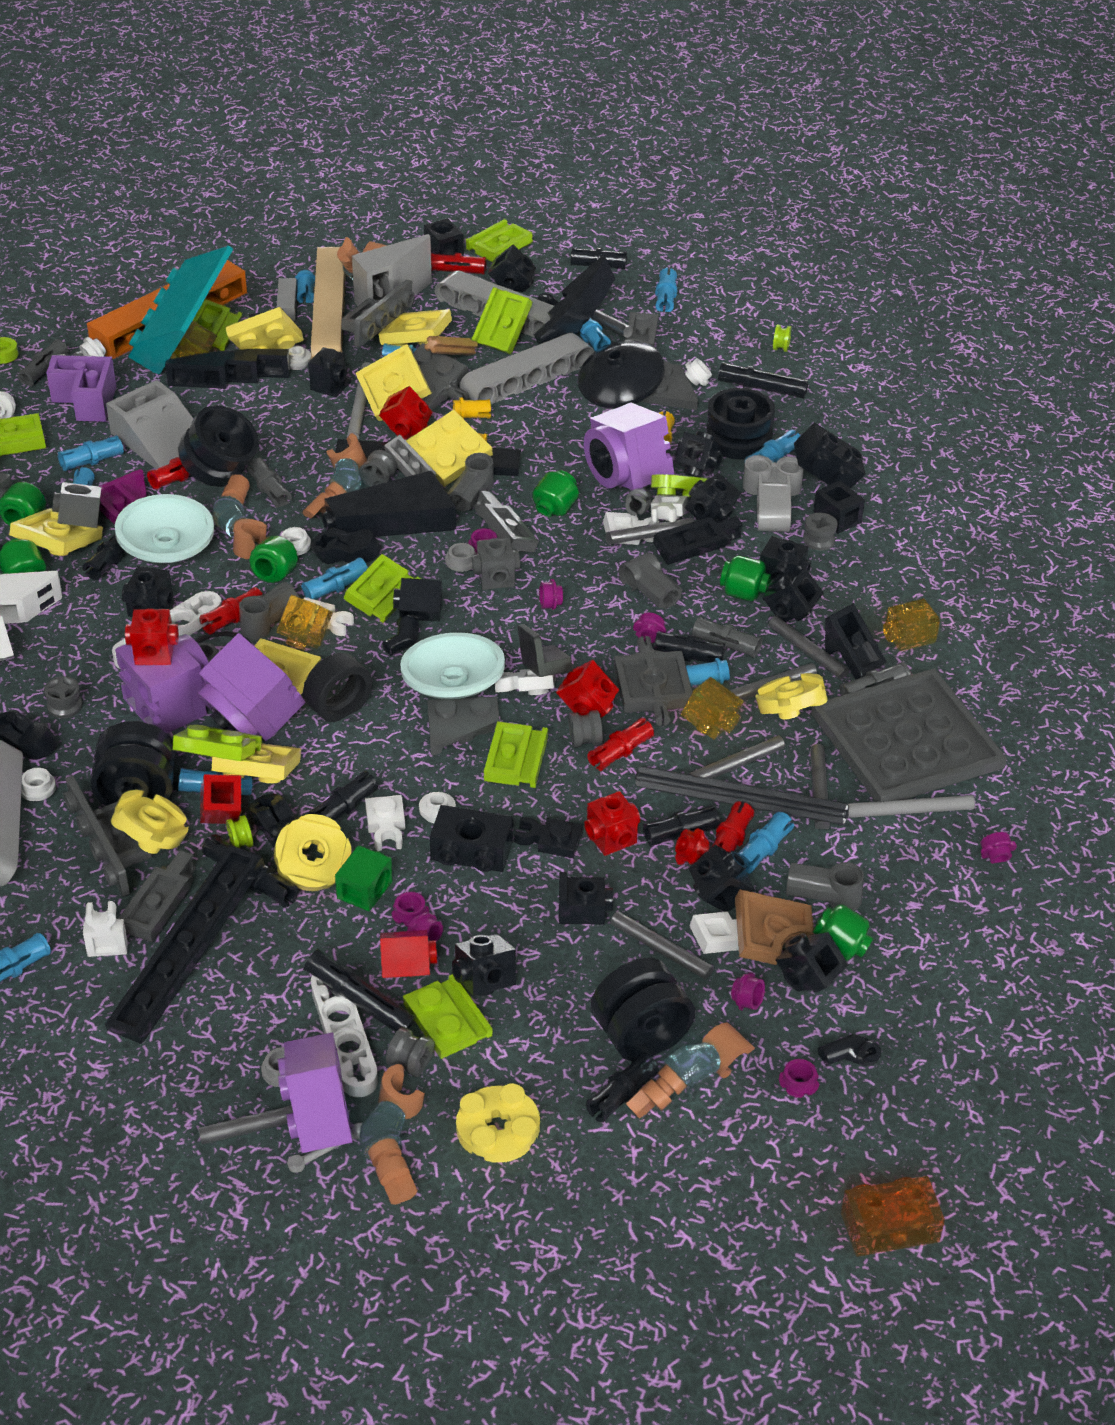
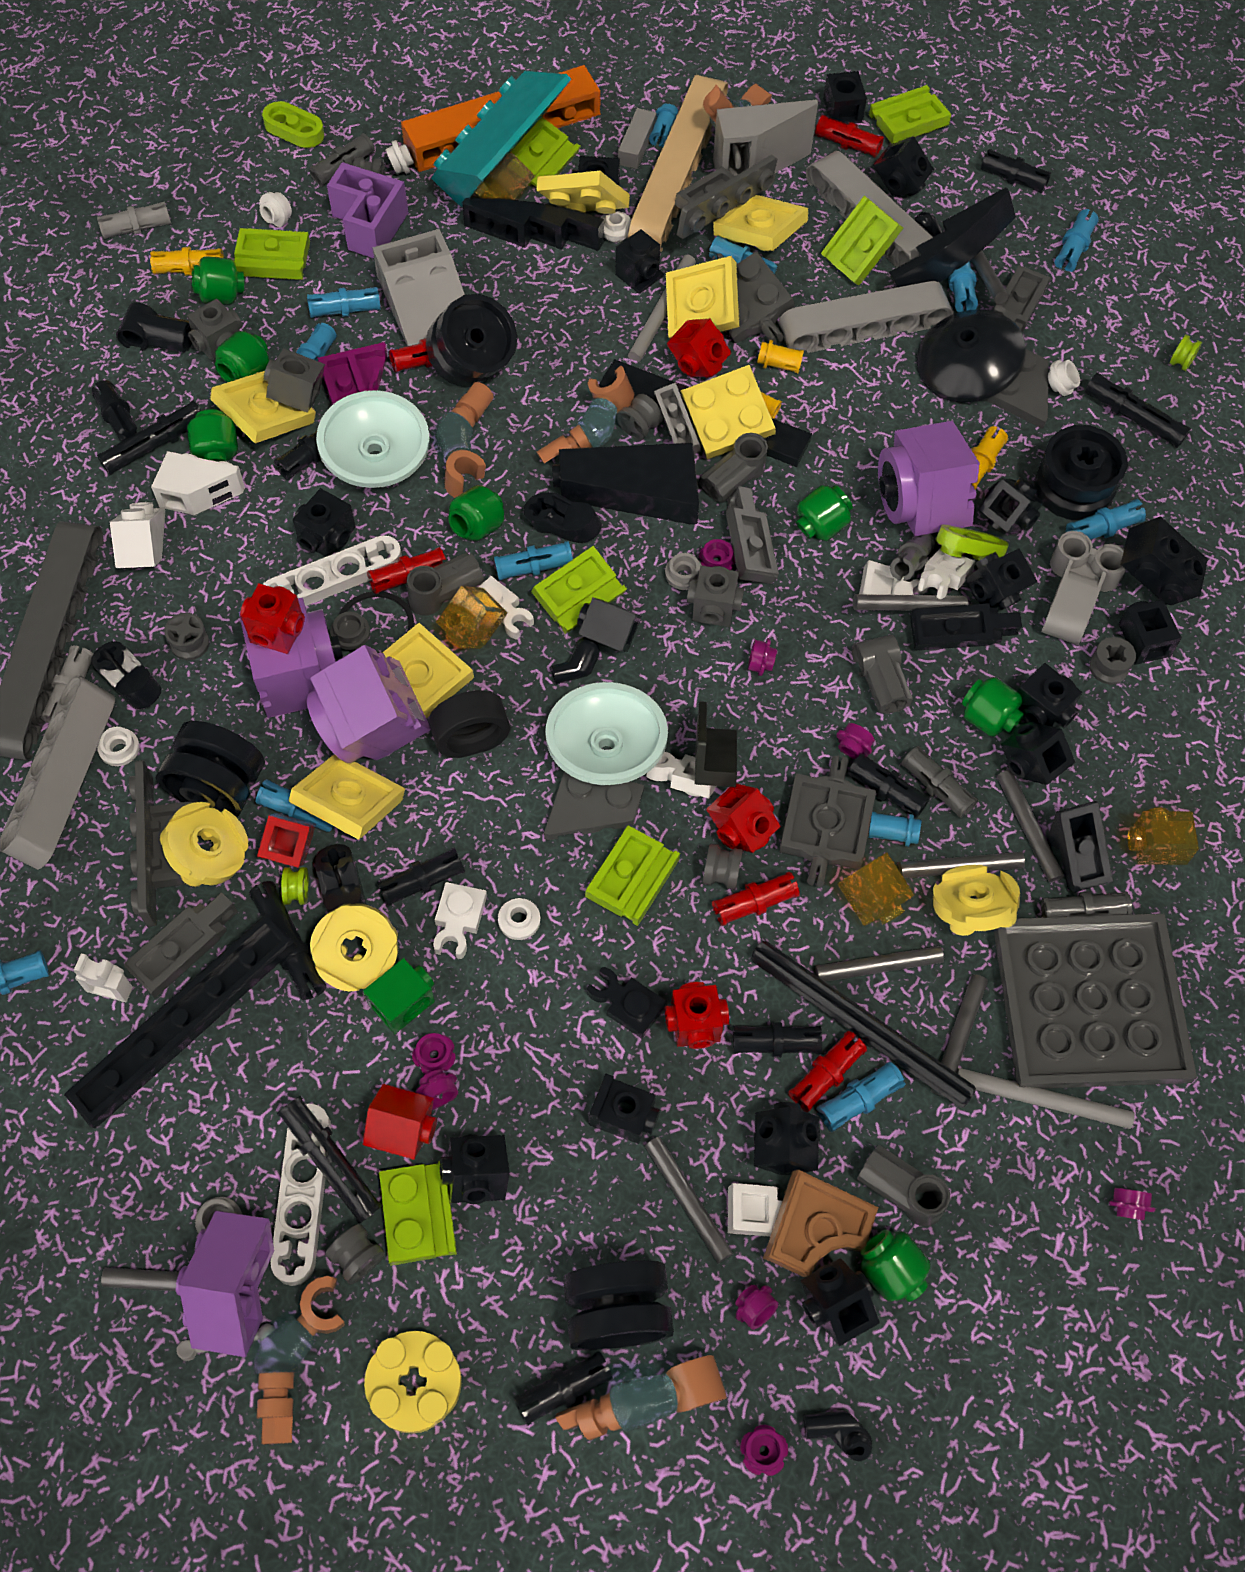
camera: 20 degrees right, 20 degrees up
(217, 742) = (307, 767): lime plate -> none
(269, 482) = (516, 399): dark grey pin -> none
(298, 538) = (514, 484): white plate -> none
(451, 345) = (787, 264): medium nougat axle -> none
(471, 838) = (522, 961): black brick -> none
(691, 846) = (774, 1079): red plate -> none

